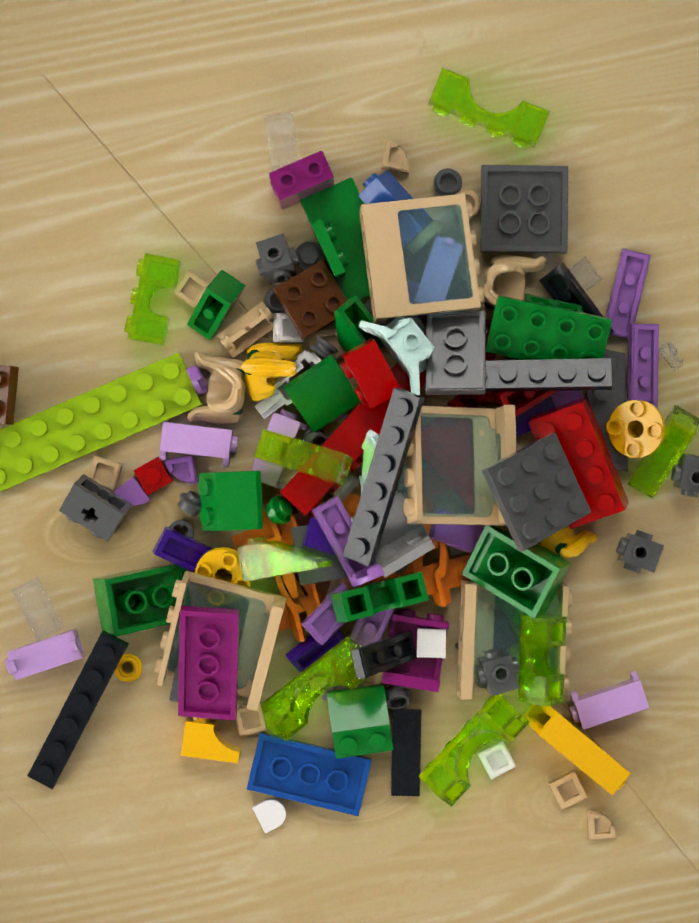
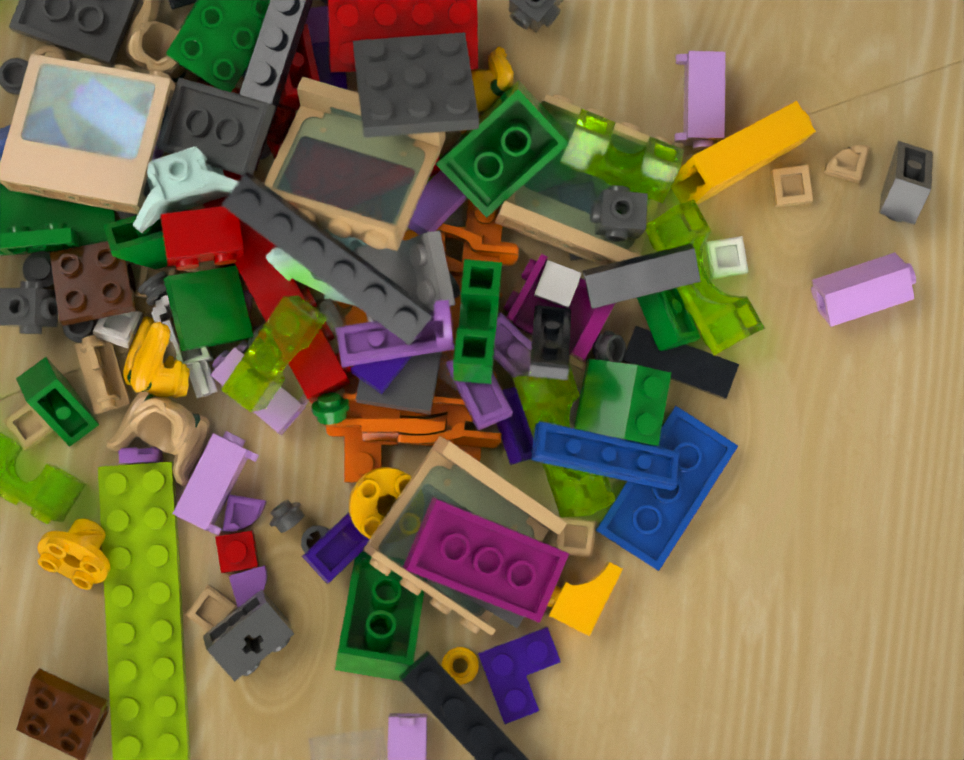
camera: 75 degrees left, 5 degrees down
(110, 361) = (76, 553): none -> yellow plate
(138, 703) = (510, 664): none -> dark purple plate
(230, 500) = (298, 463): green slope -> none
(270, 813) = (699, 553): white tile -> none
(276, 558) = (385, 438): clear neon green slope -> none
(314, 723) = (605, 455): none -> blue tile
(438, 729) = (668, 319): none -> green slope
(456, 704) = (642, 275): none -> tile
(506, 870) = (863, 289): none -> lavender brick
(599, 875) = (907, 183): none -> dark grey slope

